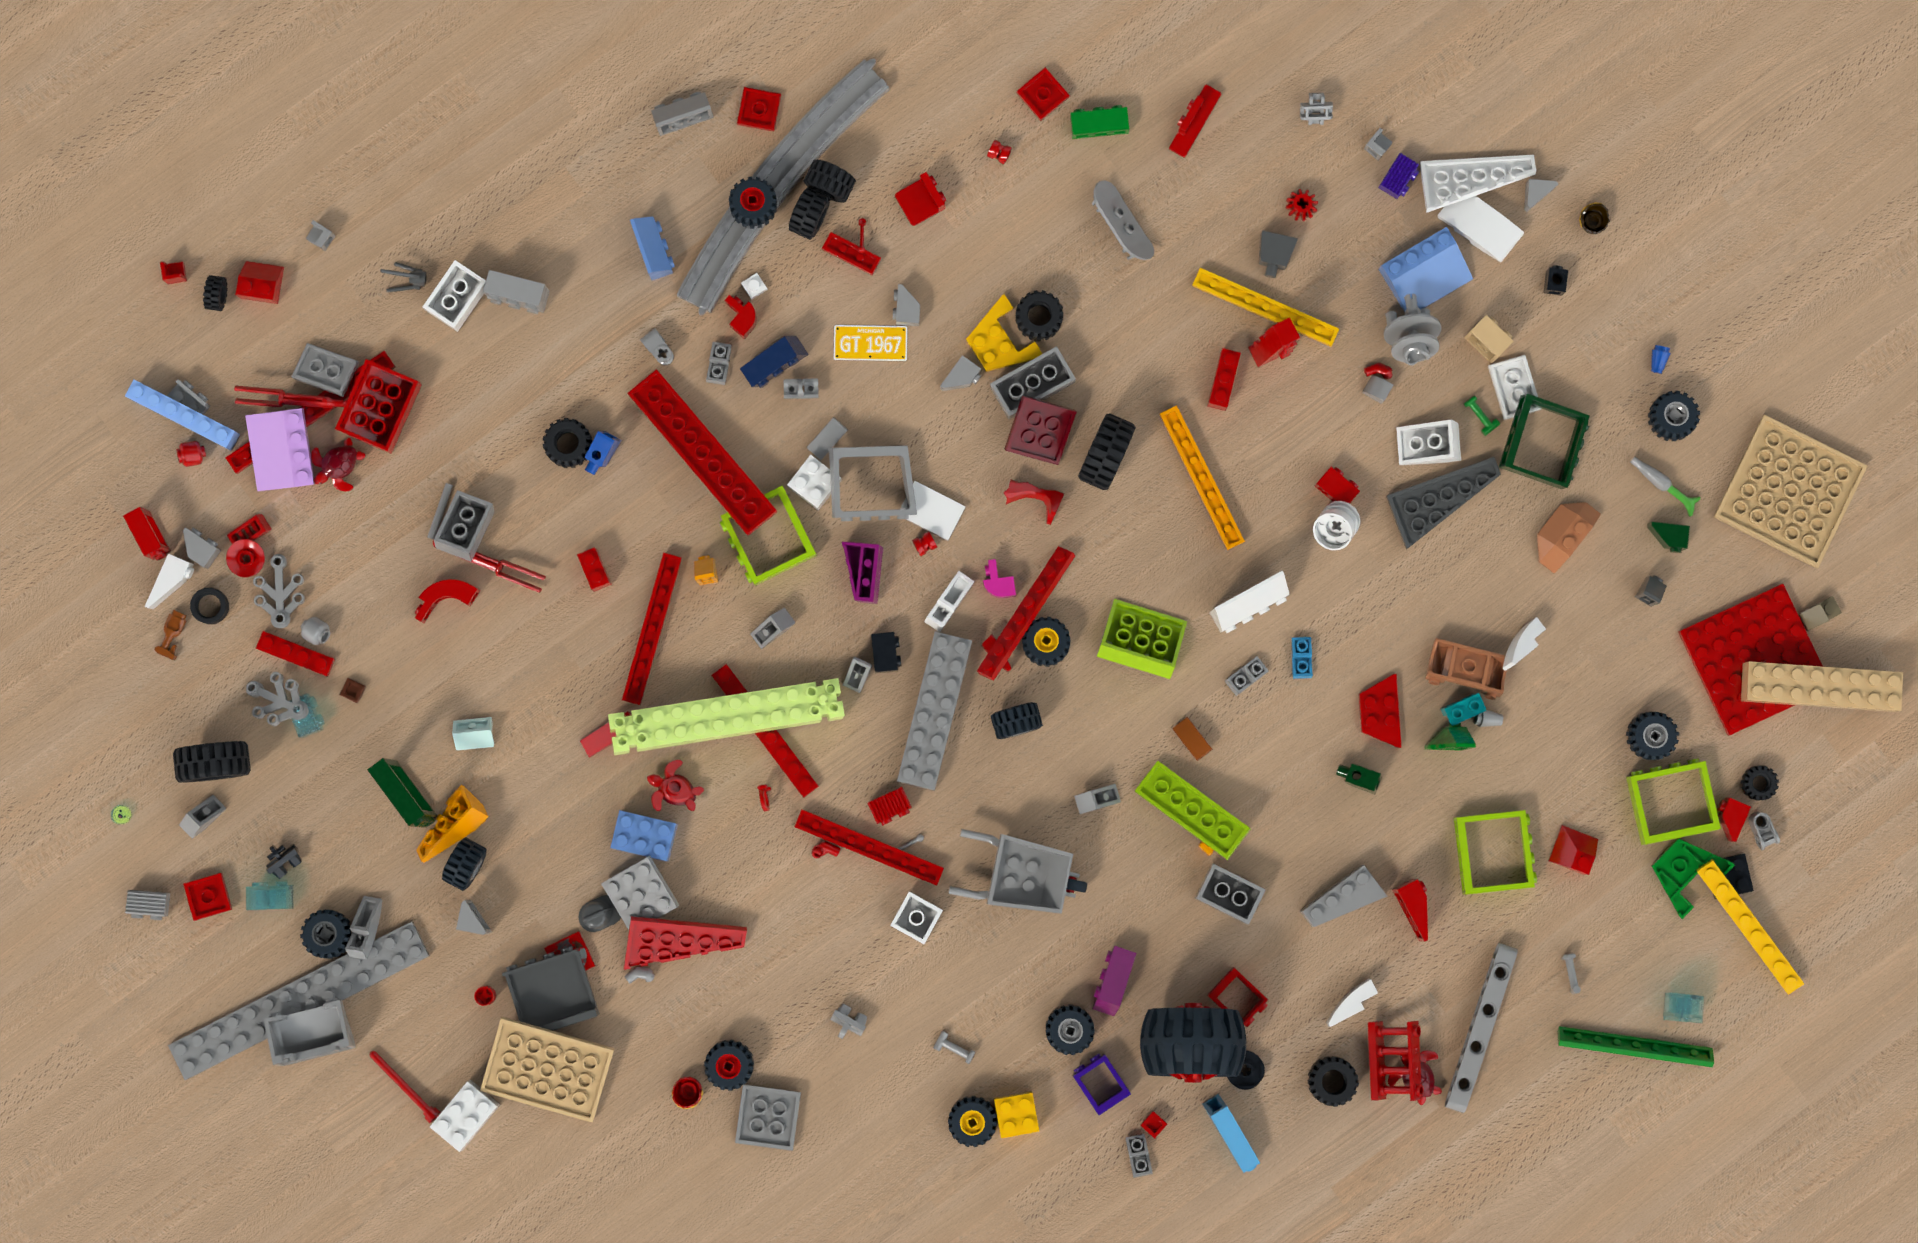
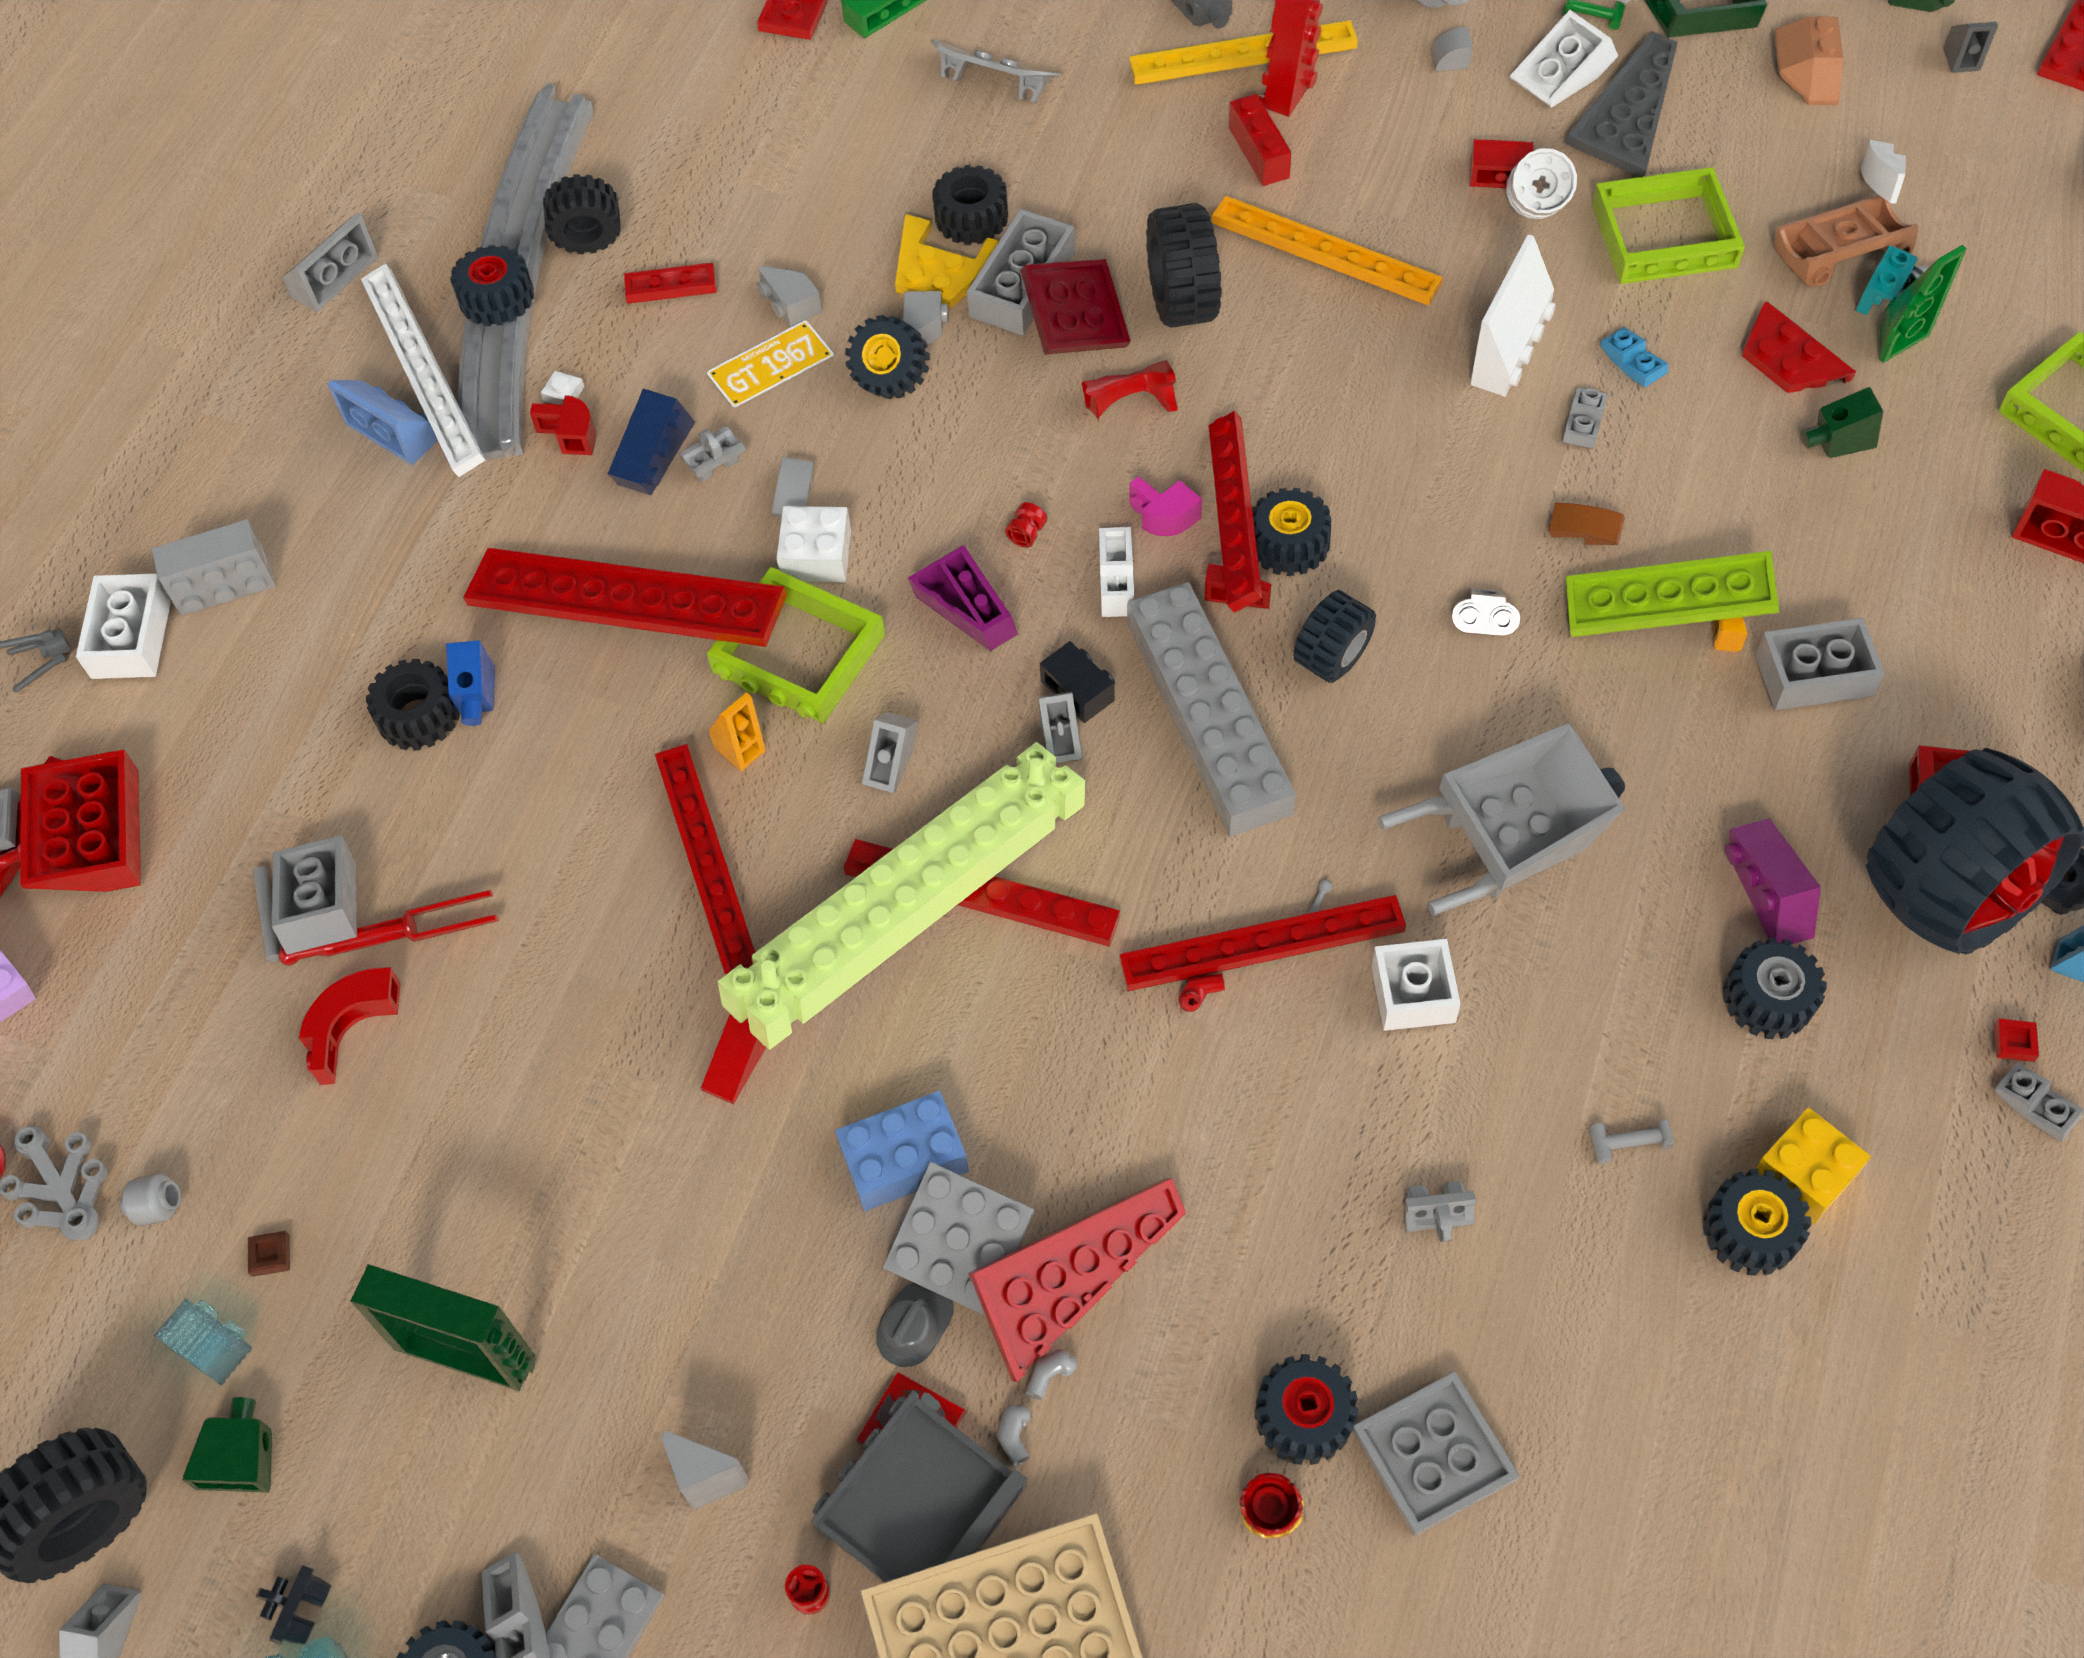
camera: 30 degrees left, 25 degrees down
(279, 701) = (180, 1327): light grey plant -> none
(292, 775) = (232, 1452): none -> dark green torso
(295, 653) = (134, 1260): red plate -> none
(336, 464) = (55, 945): animal -> none
(458, 820) = (575, 1325): light orange wedge -> none
(464, 864) = (626, 1383): black wheel -> none
(473, 733) = (518, 1187): light aqua panel -> none
(594, 569) = (563, 837): red brick -> none
(607, 987) = (1009, 1431): none -> light grey arm
(656, 345) = (472, 524): light grey piece -> none
(673, 788) = (899, 1051): red animal -> none
(688, 227) = (423, 371): none -> white plate
(719, 363) = (574, 496): light grey slope -> none
(759, 109) = (434, 214): red tile -> none
(764, 800) = (1045, 971): red piece -> none
(809, 213) = (579, 259): black tyre -> none
(862, 222) = (679, 265): red hinge -> none
(890, 805) = (1246, 866): red brick -> none
(900, 451) = (907, 442): light grey windscreen -> none
(921, 199) = (723, 179): red bracket -> none
(923, 395) = (887, 357): none -> black wheel
(934, 511) = (1000, 487): white tile -> none
(995, 149) = (776, 90): red wheel -> none
(1097, 799) = (1527, 672): light grey slope -> none
(1103, 752) = (1486, 613): none -> bracket
(1111, 1101) = (1879, 1061): dark purple window -> none
(1142, 639) = (1415, 457): lime slope -> none
(1347, 895) = (1967, 567): light grey wedge -> none
(1380, 368) = (1431, 36): red arm -> none
(1409, 565) = (1672, 260): none -> lime window

